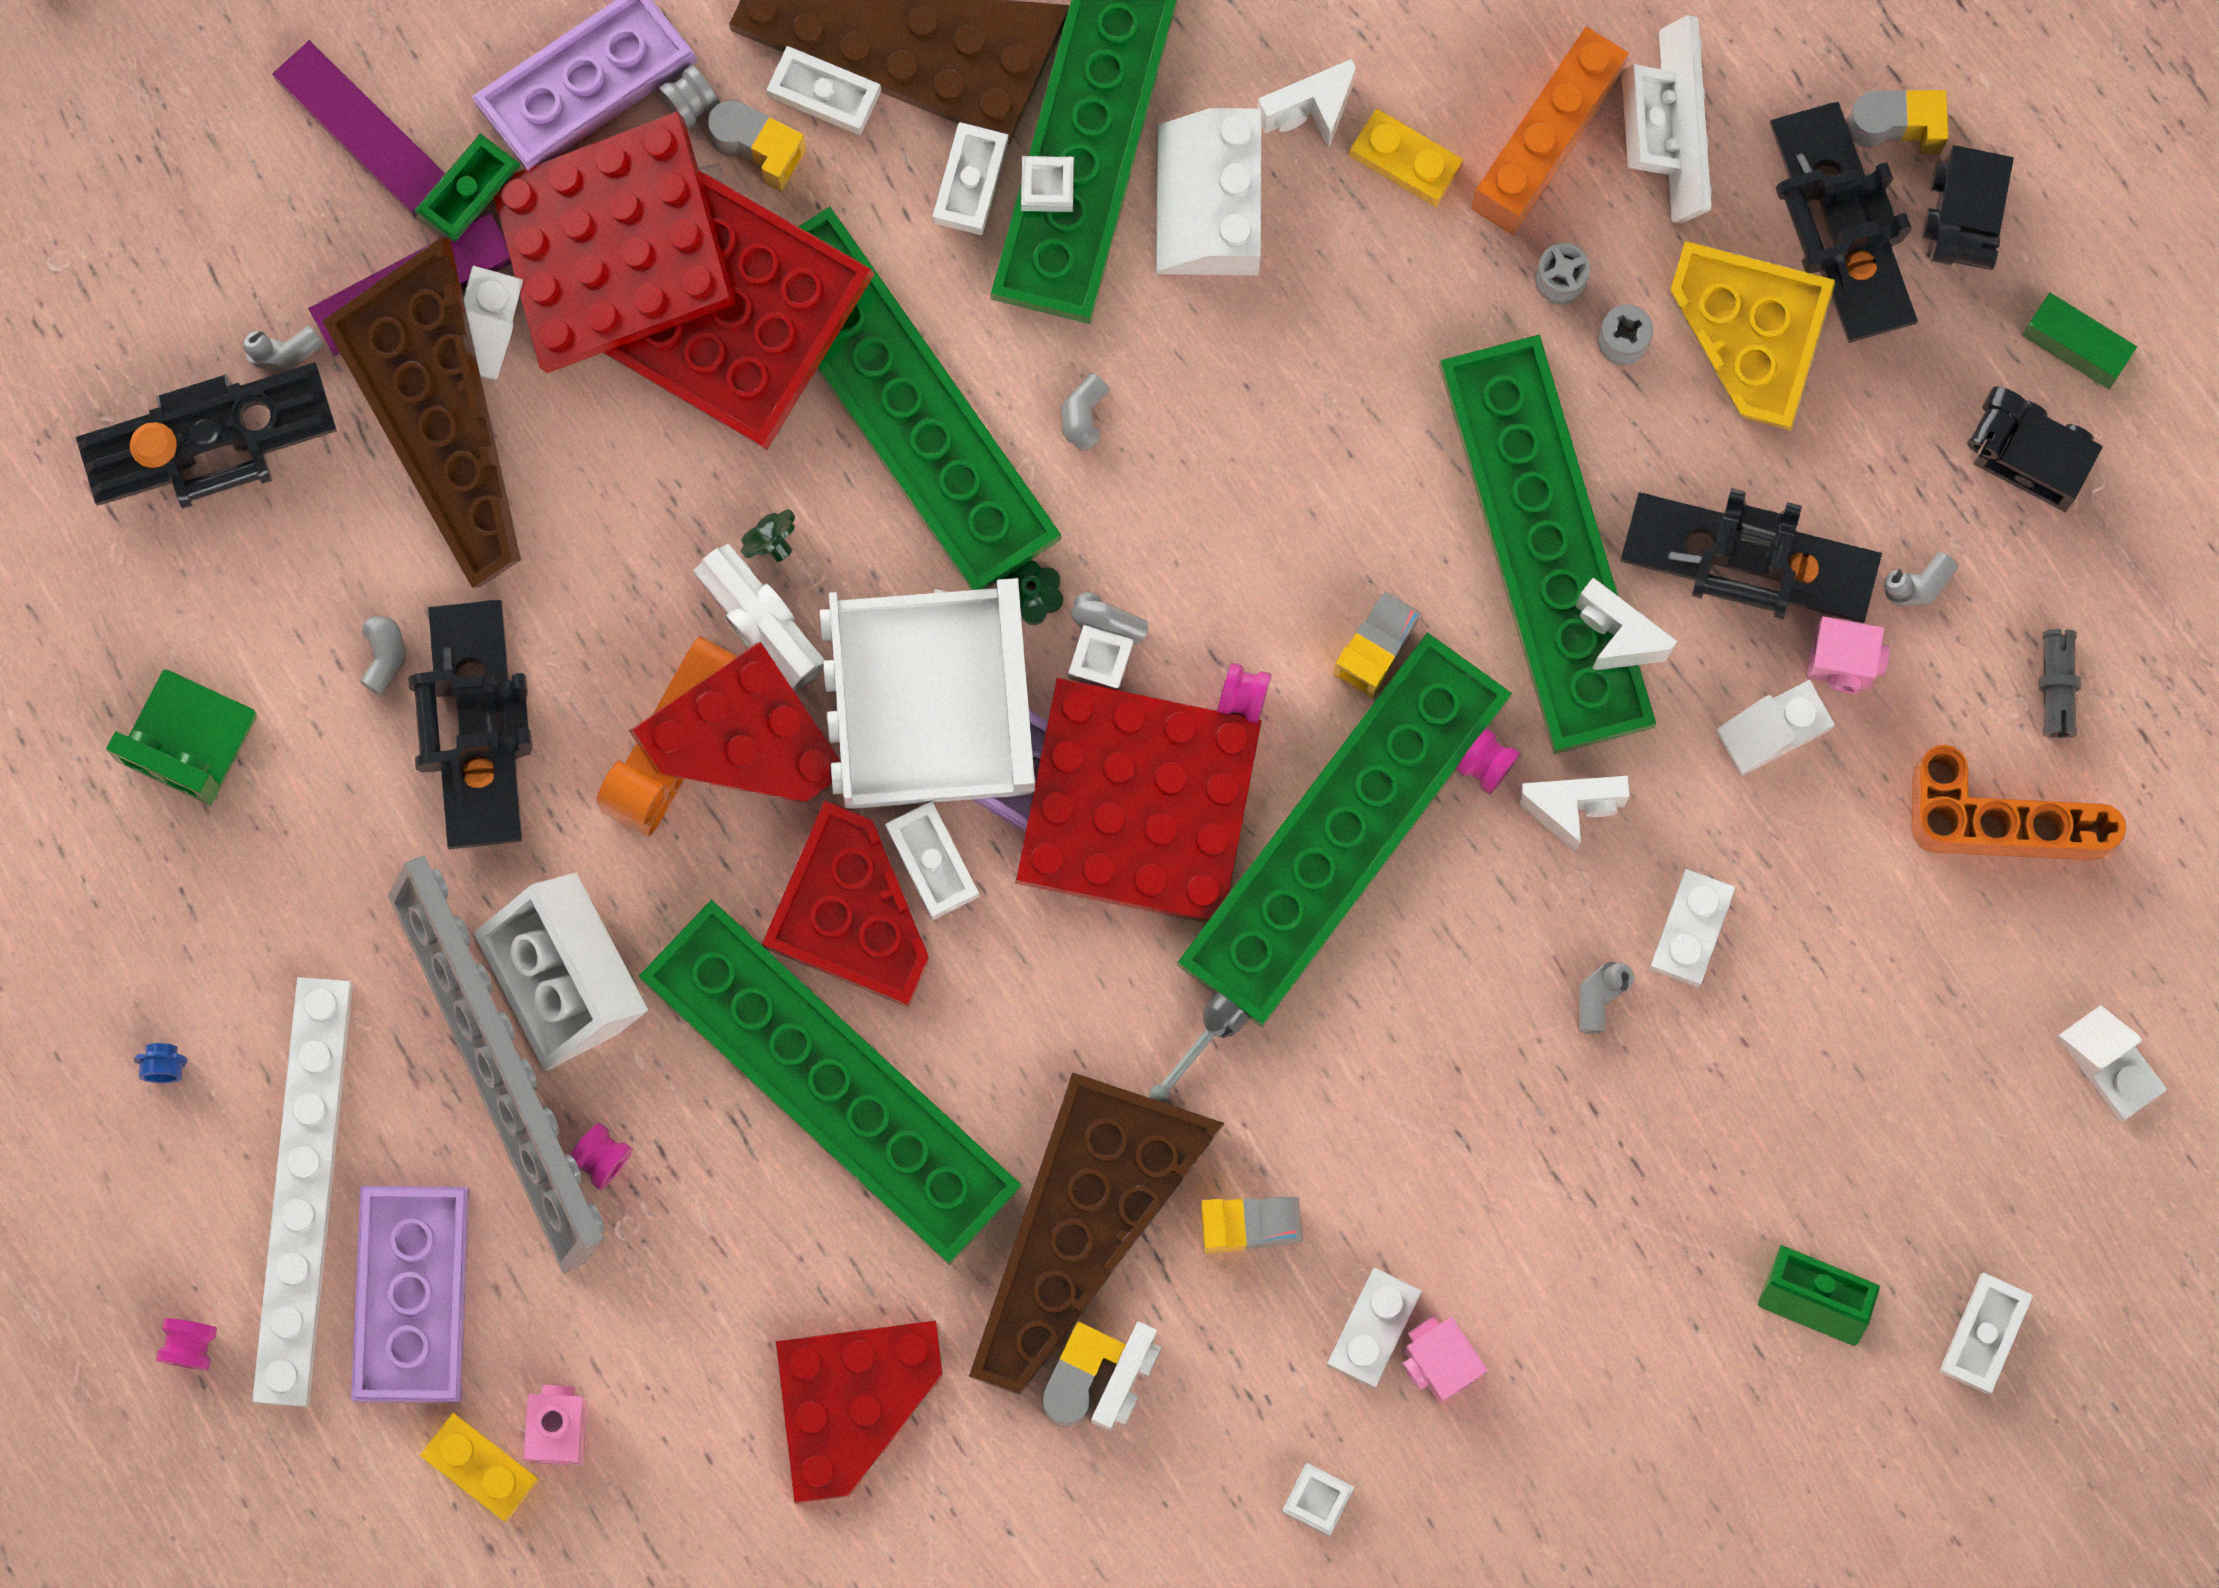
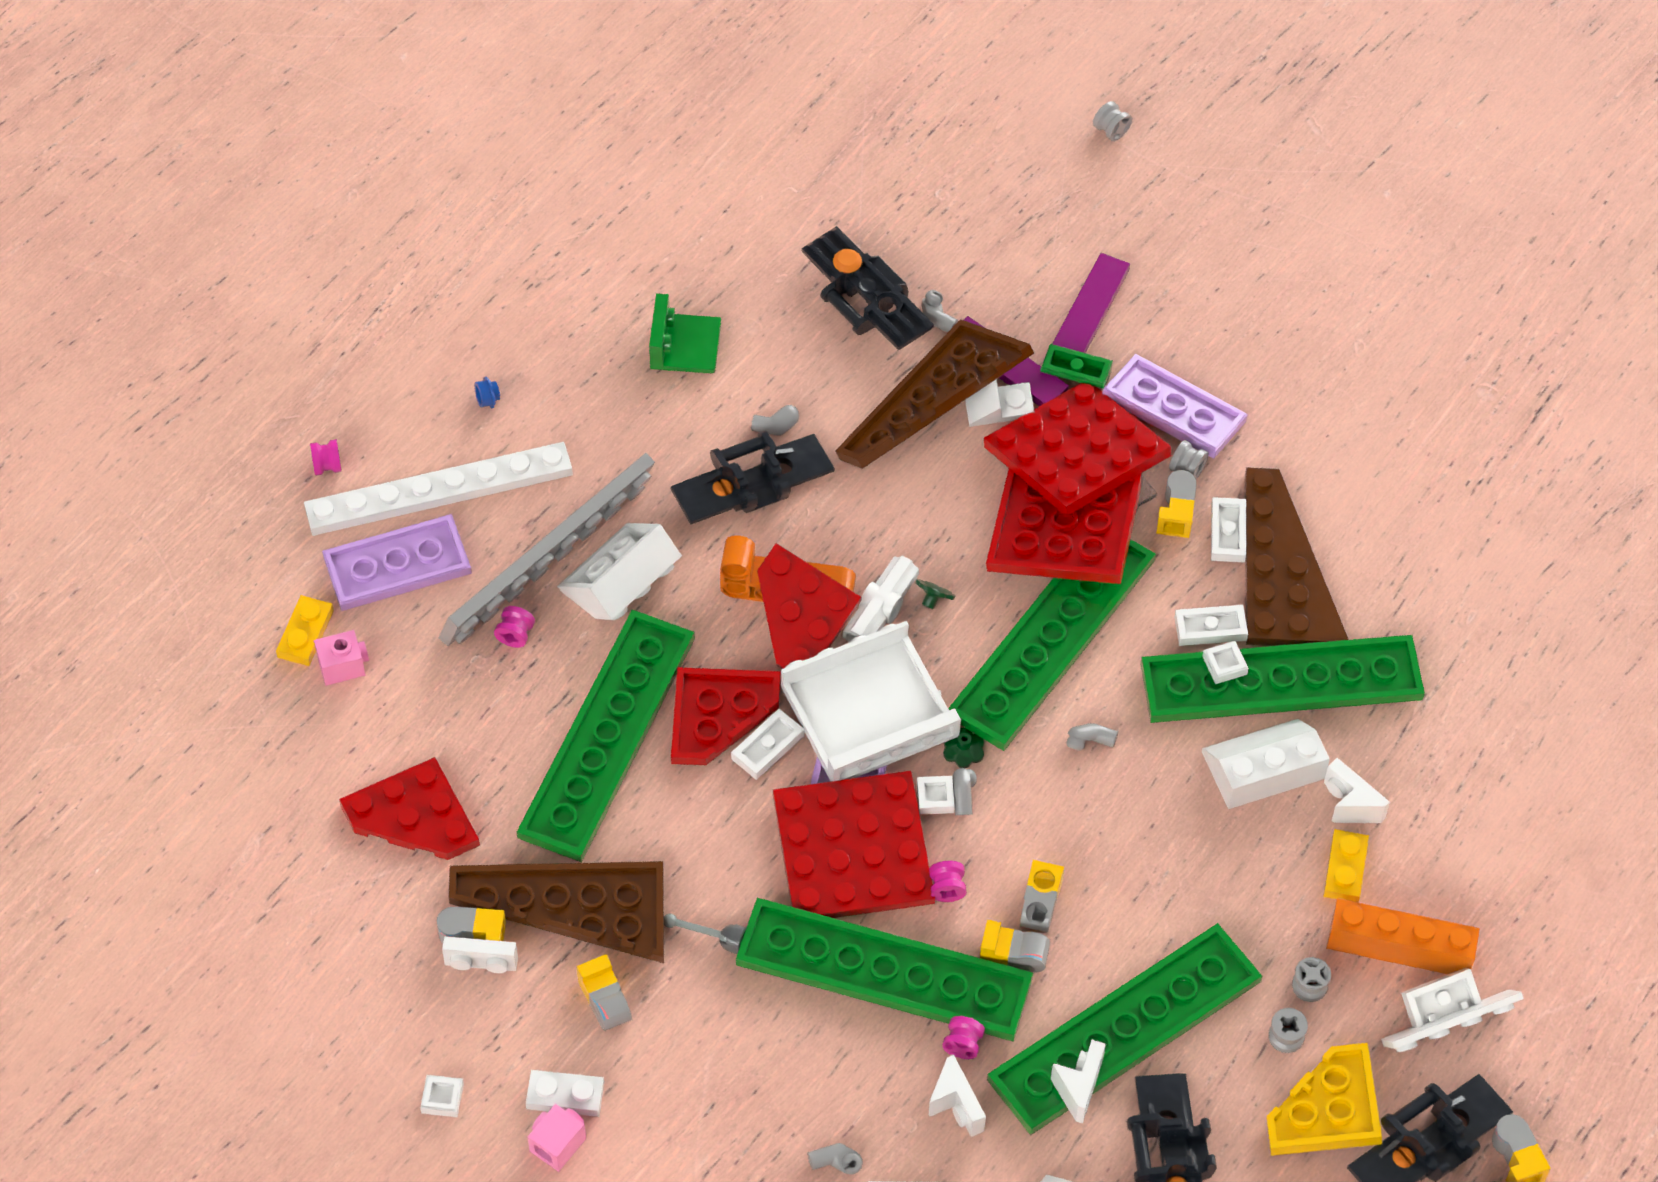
camera: 70 degrees right, 20 degrees down
(1314, 577) = (1041, 895): none -> leg

